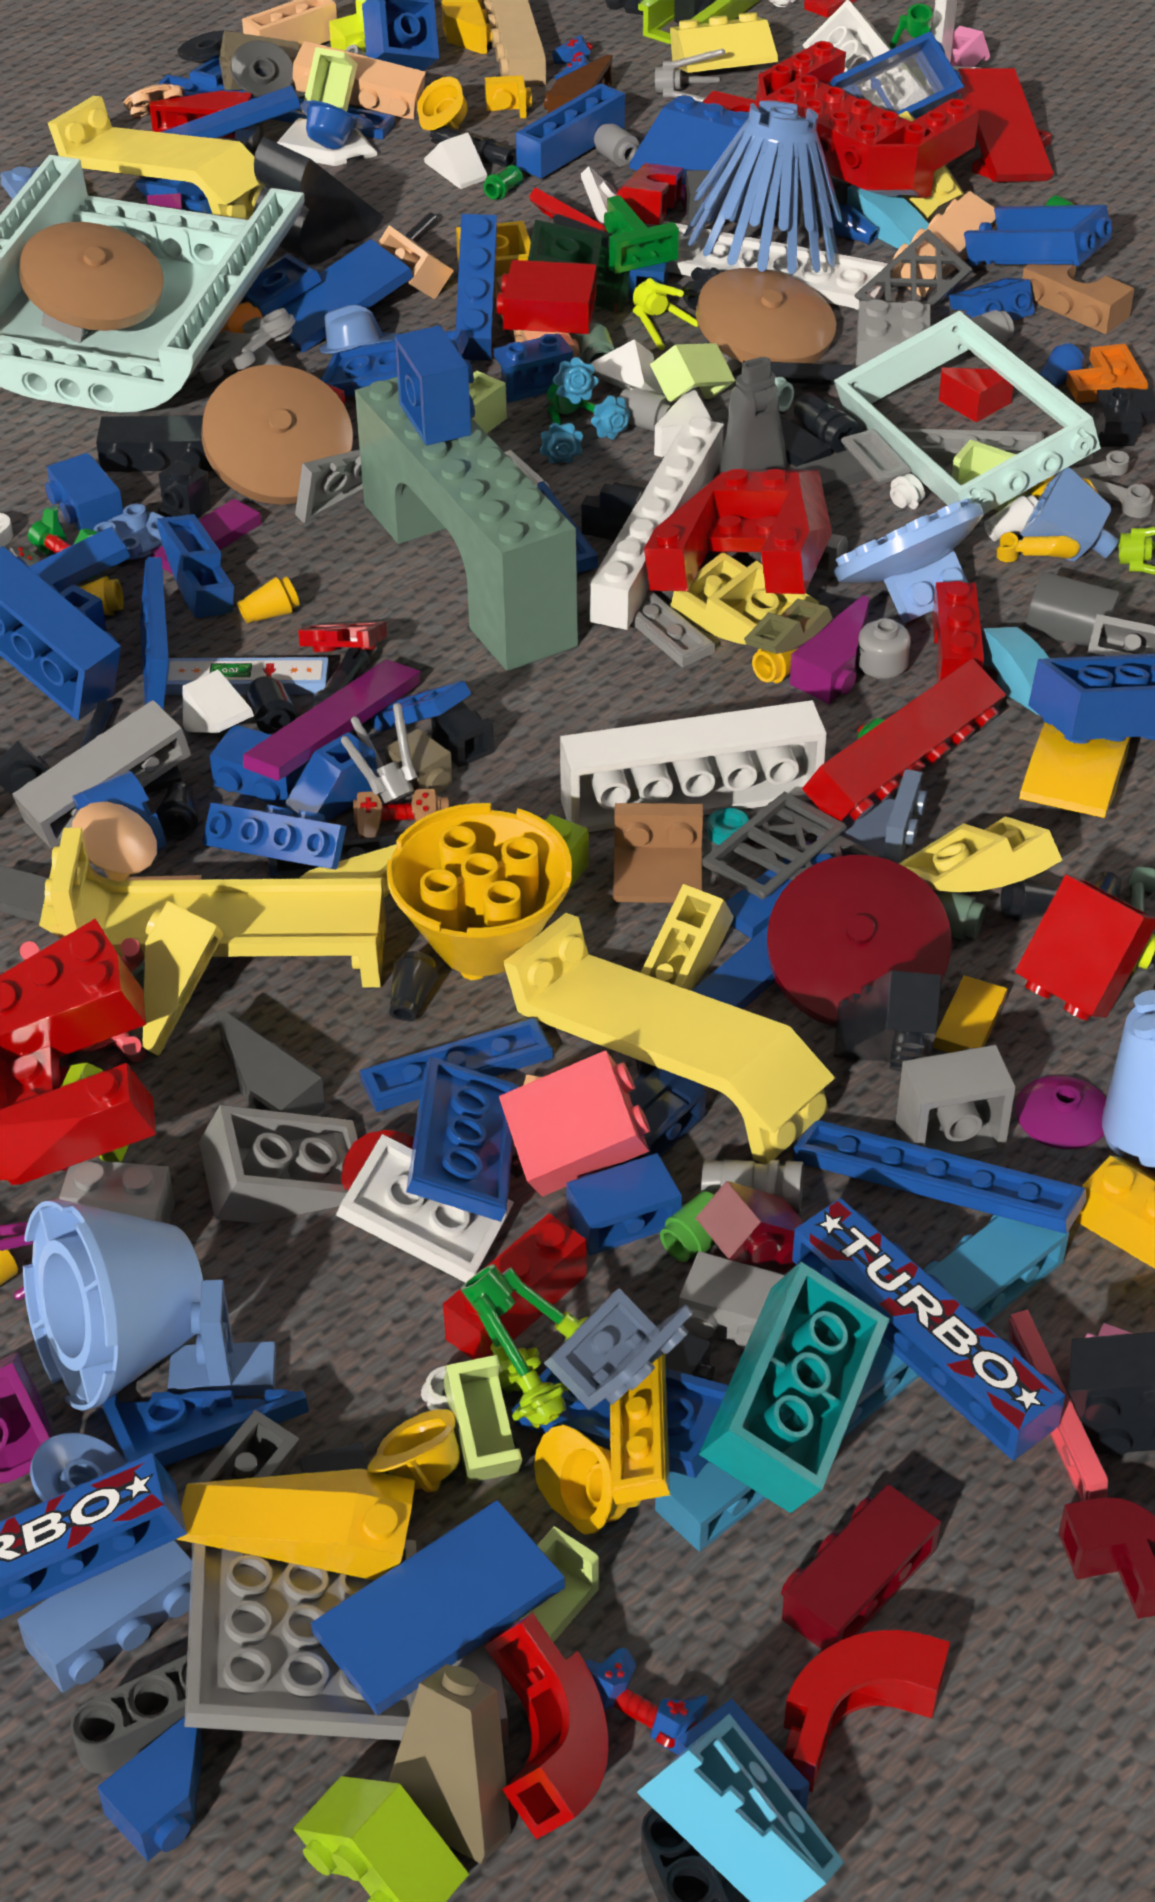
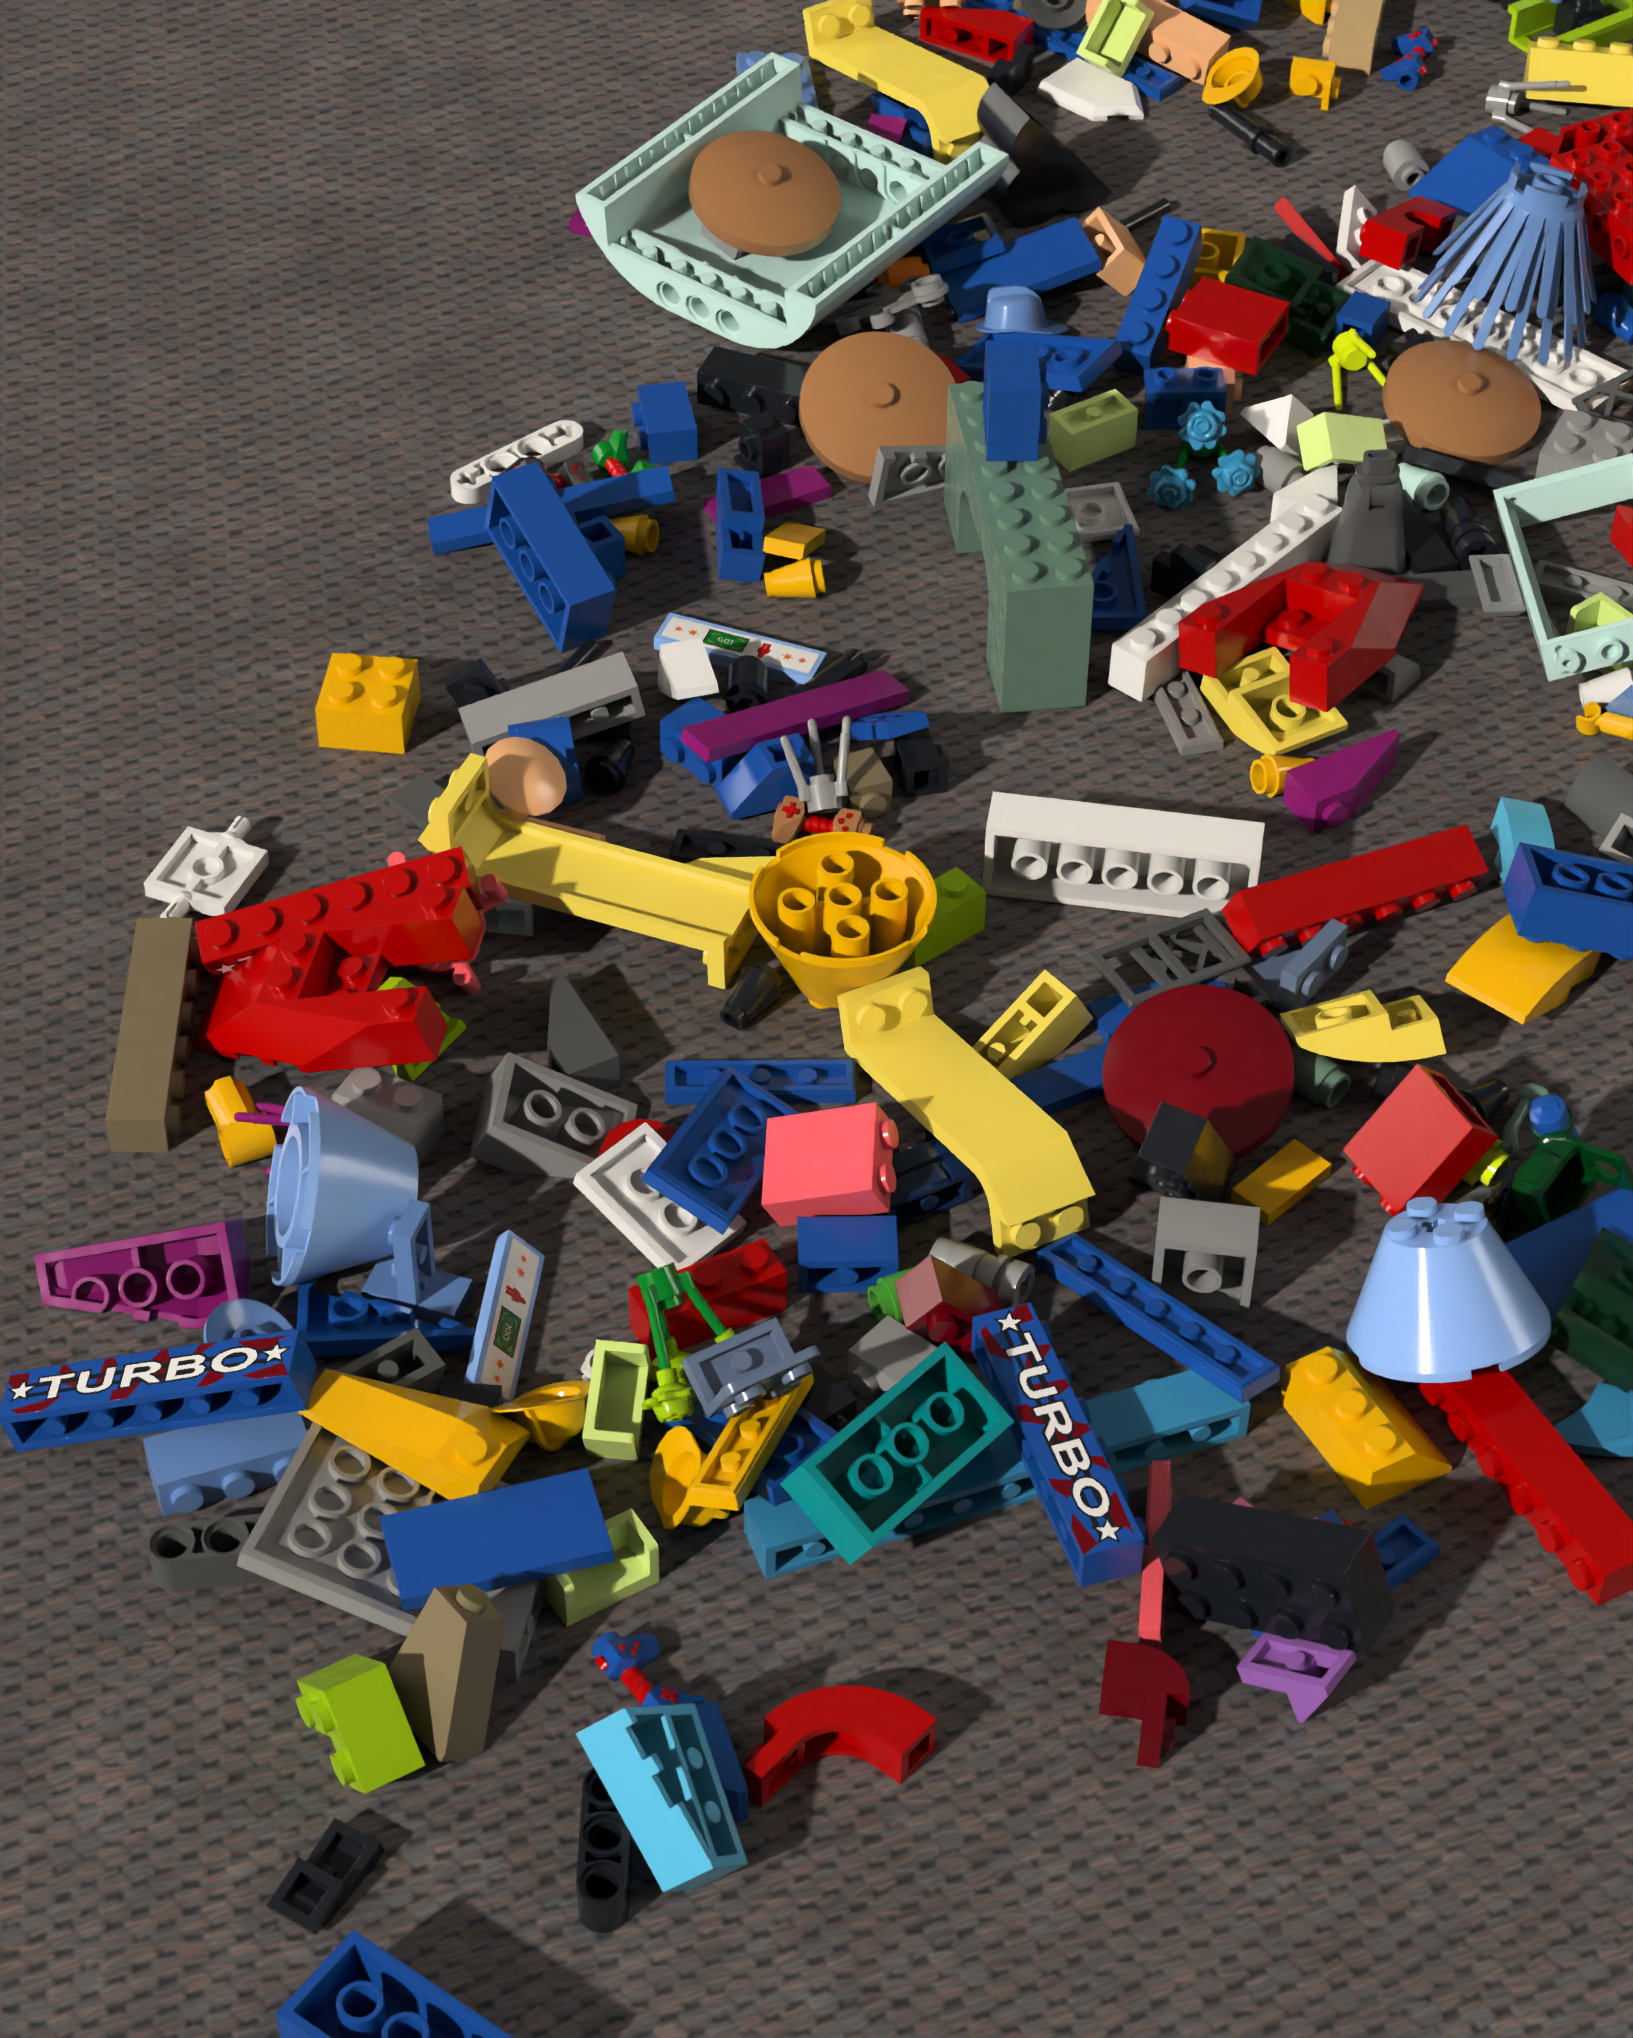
camera: 20 degrees right, 0 degrees up
(135, 529) = (695, 474): medium blue dish -> none
(154, 633) = (659, 589): blue tile -> none
(157, 1791) = (203, 1614): blue slope -> none
(174, 963) = (526, 913): light yellow slope -> none
(241, 115) = (1005, 44): blue tile -> none
(252, 567) = (794, 540): none -> yellow tile
(275, 834) = (687, 814): blue bracket -> none
(324, 1368) = (505, 1315): none -> tile
(330, 636) = (850, 634): red wing -> none
(331, 125) = (1097, 77): blue piece -> none
(457, 161) = (1222, 147): white slope -> none
(499, 184) = (1252, 183): green pin -> none
(565, 1725) = (566, 1673): red arch -> none
(568, 130) = (1356, 138): blue brick -> none
(578, 82) = (1396, 95): reddish brown slope -> none
(595, 343) = (1263, 387): sand green brick -> none
(635, 243) = (1354, 289): green bracket -> none
(656, 851) = (1051, 932): medium nougat bracket -> none
(724, 823) = (1136, 922): teal tile -> none
(790, 629) = (1283, 747): olive slope -> none
(859, 1568) = (898, 1635): dark red brick -> none
(883, 649) = (1390, 791): light grey head -> none
(907, 491) = (1513, 631): white plate -> none
(914, 558) = (1472, 707): light blue bracket -> none
(956, 626) = (1478, 788): red arch -> none
(1061, 1112) = (1310, 1305): magenta dish -> none

